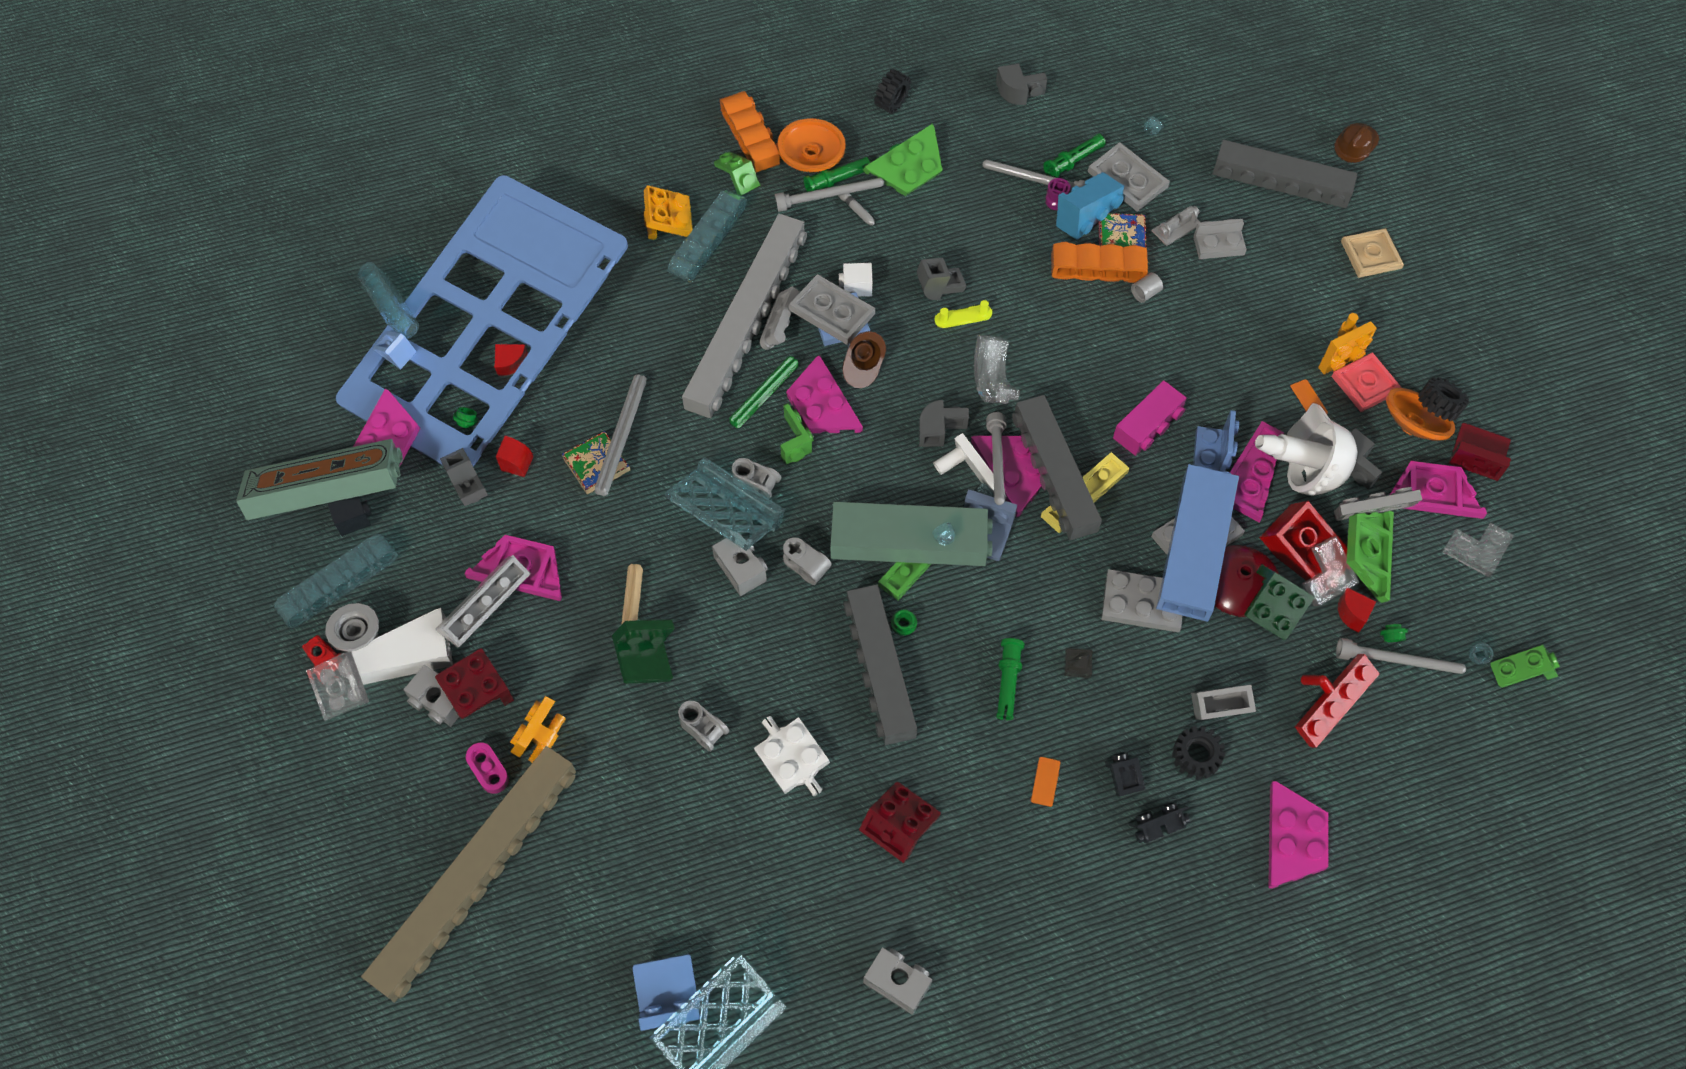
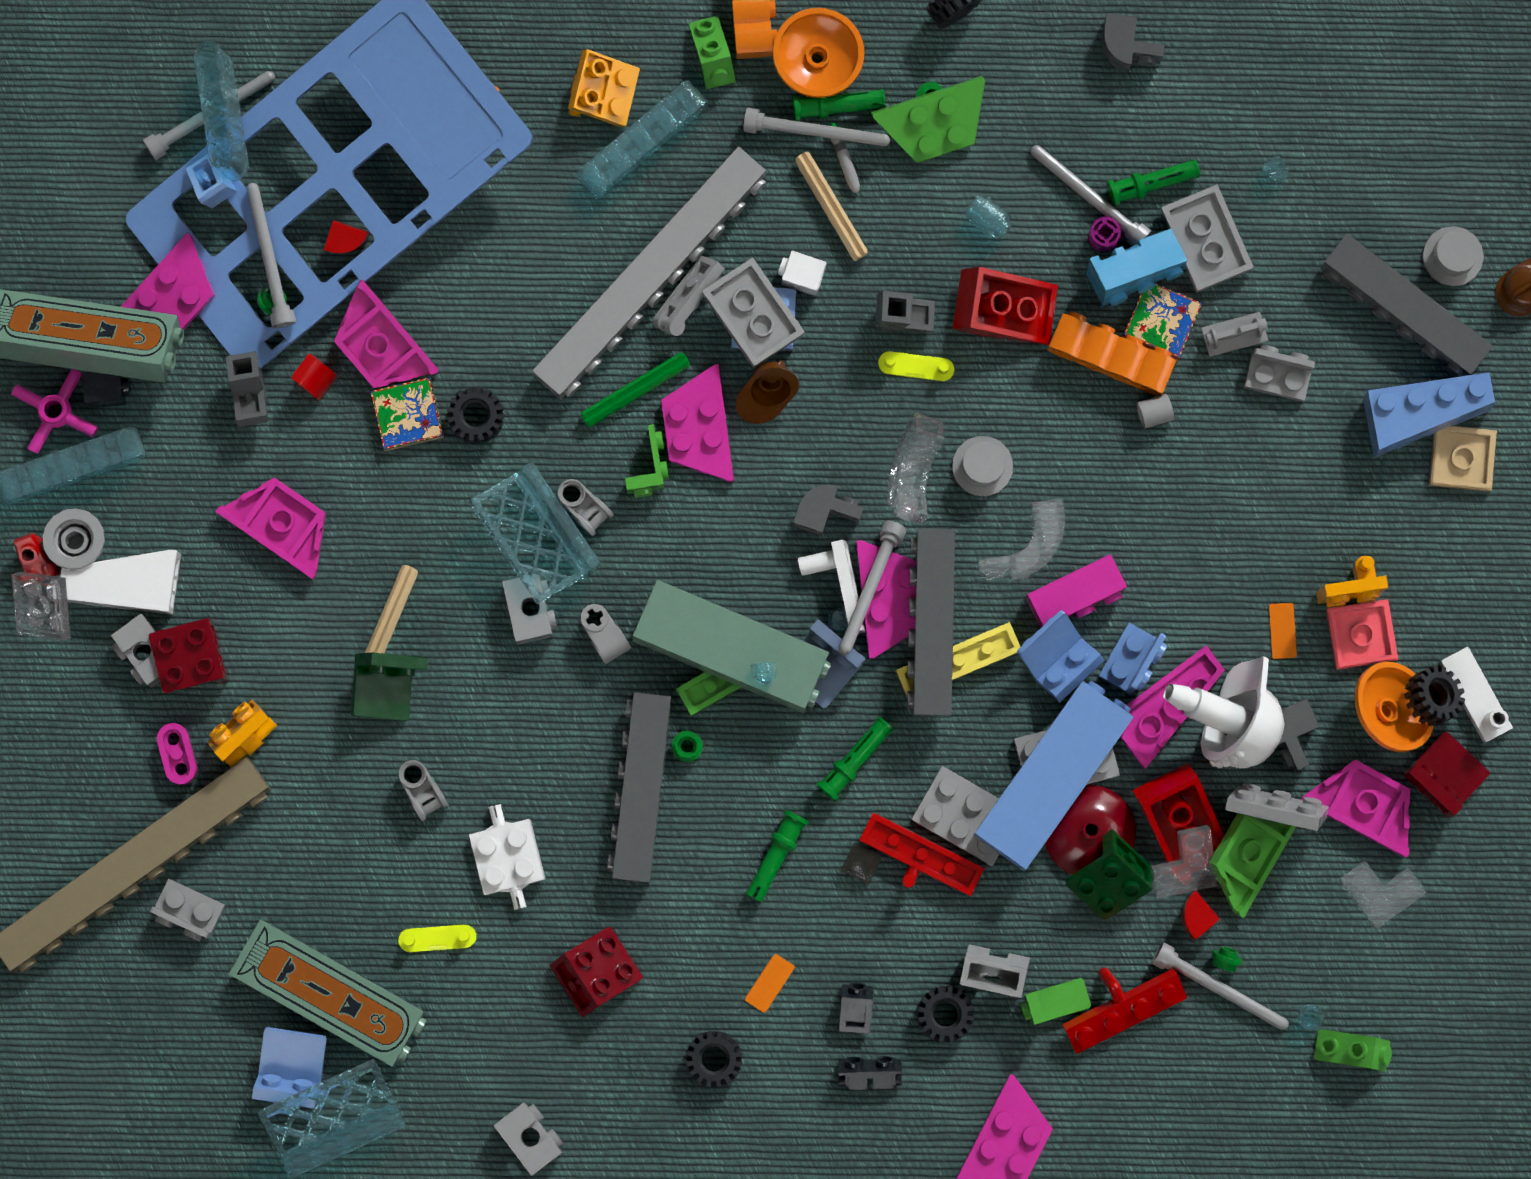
camera: 15 degrees right, 20 degrees up
(309, 537) = (45, 403): none -> dark pink bar
(347, 344) = (160, 143): none -> light grey piece
(475, 419) = (281, 313): none -> light grey piece
(483, 601) = (226, 557): light grey slope -> none
(534, 892) = (187, 909): none -> light grey bracket
(557, 417) = (379, 342): none -> dark pink wing
(620, 435) = (446, 391): light grey axle -> none
(644, 433) = (475, 396): none -> black tyre
(678, 918) = (328, 994): none -> brick
(756, 842) = (437, 938): none -> neon yellow piece
(859, 236) = (831, 206): none -> tan axle
(973, 208) = (988, 217): none -> clear light blue brick
(1008, 256) = (1004, 306): none -> red slope
(1032, 840) = (694, 1058): none -> black tyre
(1035, 596) = (845, 769): none -> green pin
(1041, 360) = (982, 466): none -> light grey piece
(1109, 386) = (1048, 531): none -> clear arch
(1122, 639) = (920, 855): none -> red plate
(1158, 464) = (1059, 656): none -> medium blue bracket
(1280, 712) = (1055, 1001): none -> bright green bracket
(1298, 137) = (1453, 256): none -> light grey piece
(1329, 227) = (1421, 409): none -> medium blue wedge
(1481, 402) = (1480, 700): none -> white piece

